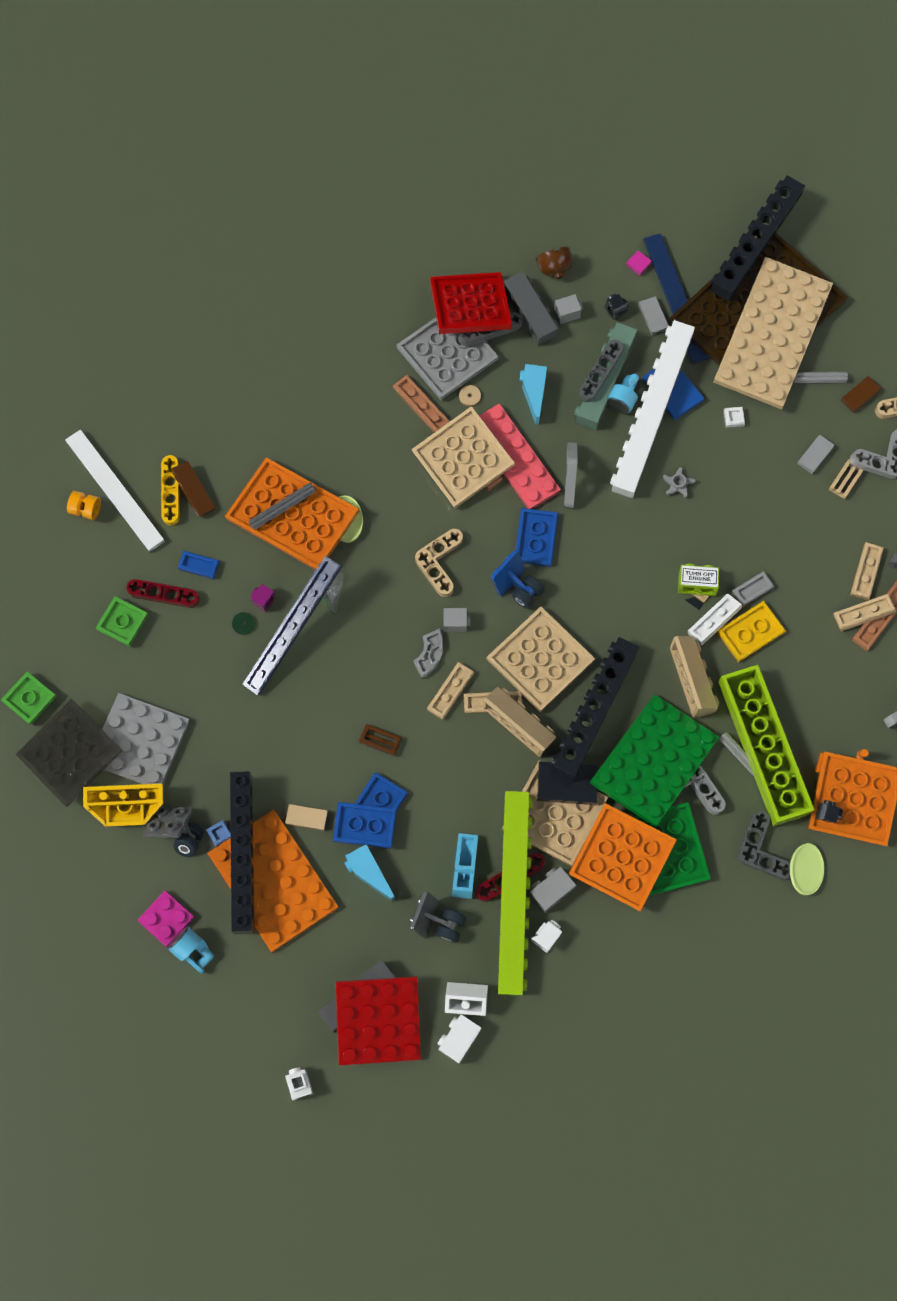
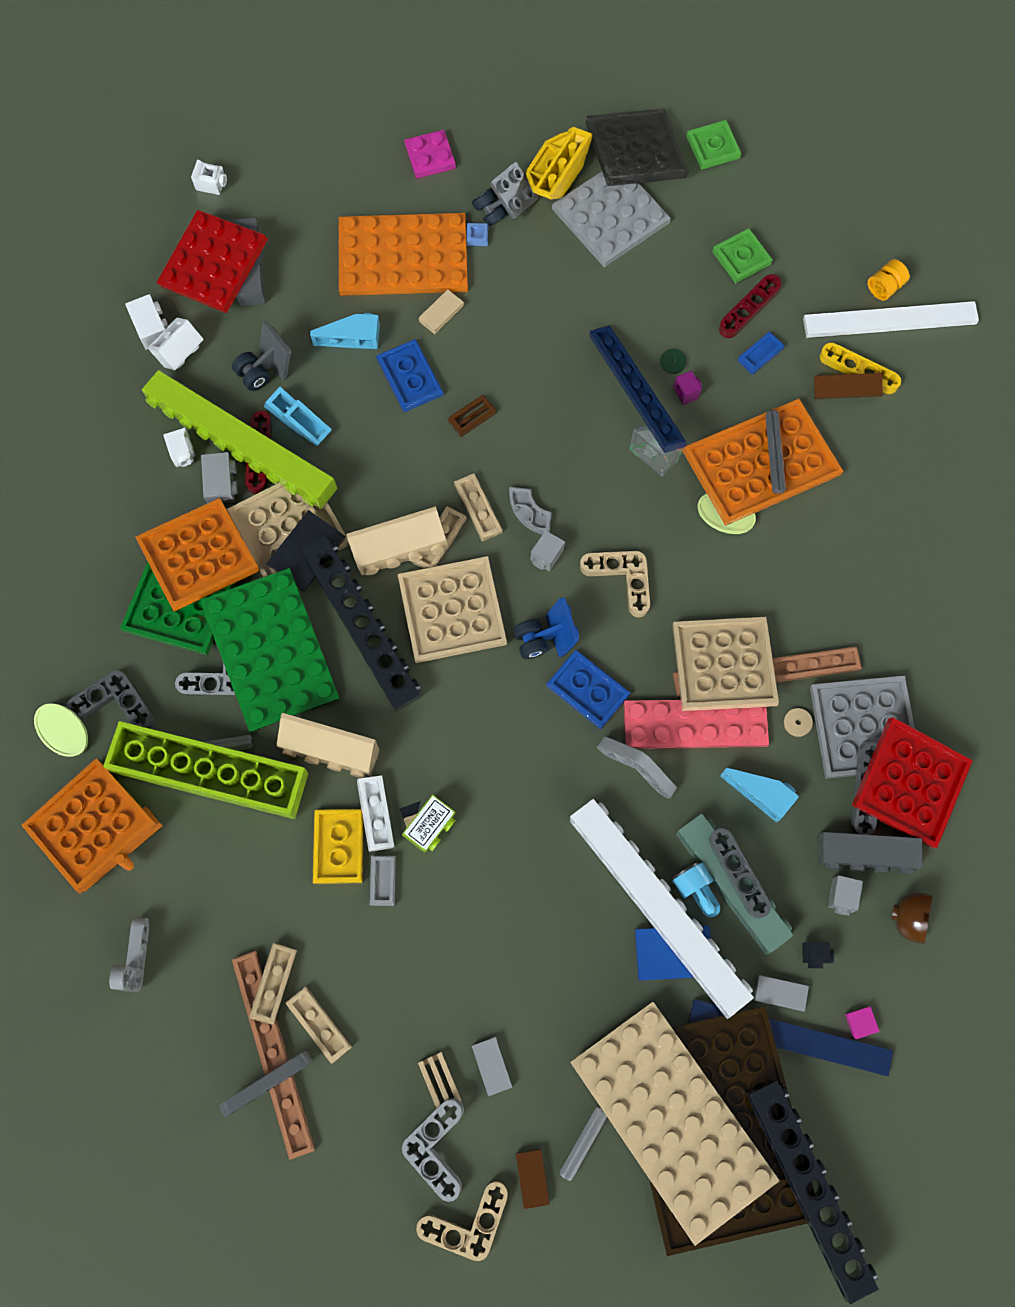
camera: 120 degrees right, 0 degrees up
(185, 943) = (387, 152): medium azure piece -> none
(242, 853) = (441, 230): black brick -> none
(364, 825) = (396, 351): blue tile -> none
(678, 483) = (555, 881): light grey animal -> none
(734, 417) = (596, 1001): white tile -> none
(829, 812) = (90, 781): black plate -> none

